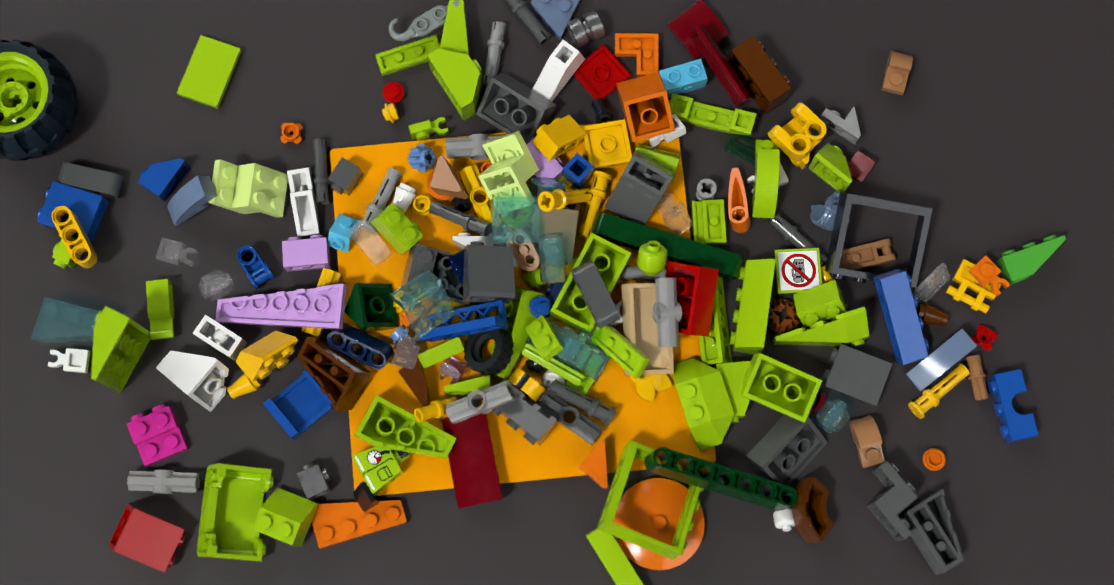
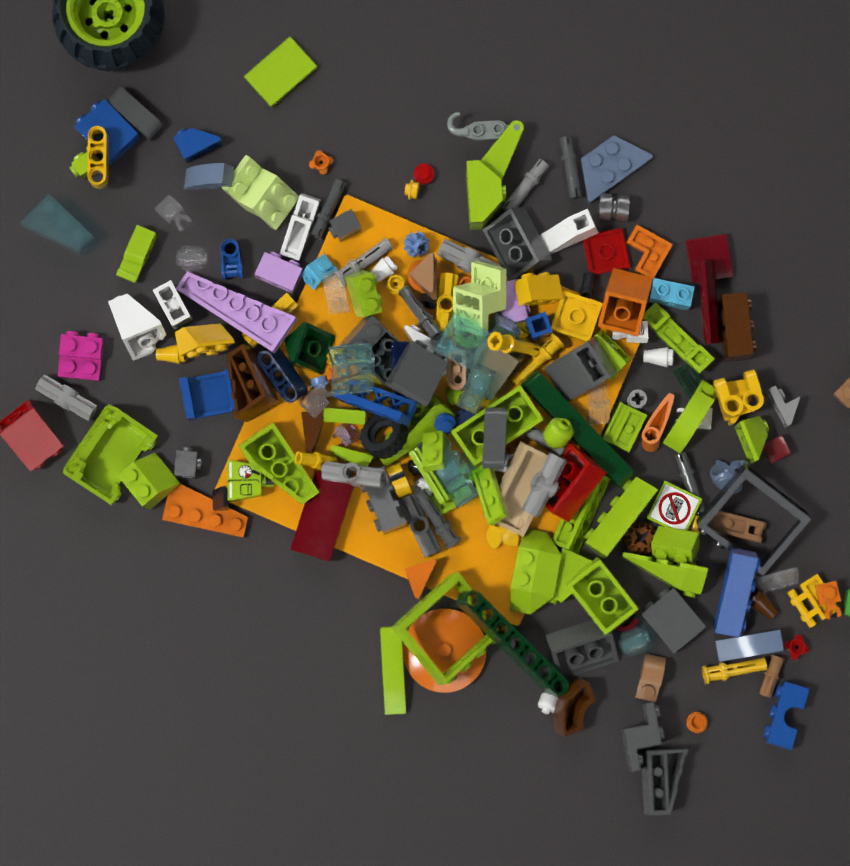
camera: 25 degrees right, 5 degrees up
(72, 361) = (44, 257): white plate -> none
(116, 348) = (86, 270): lime slope -> none
(406, 55) = (453, 147): lime tile -> none
(423, 129) = (430, 220): lime plate -> none
(705, 140) = (659, 356): none -> white cone

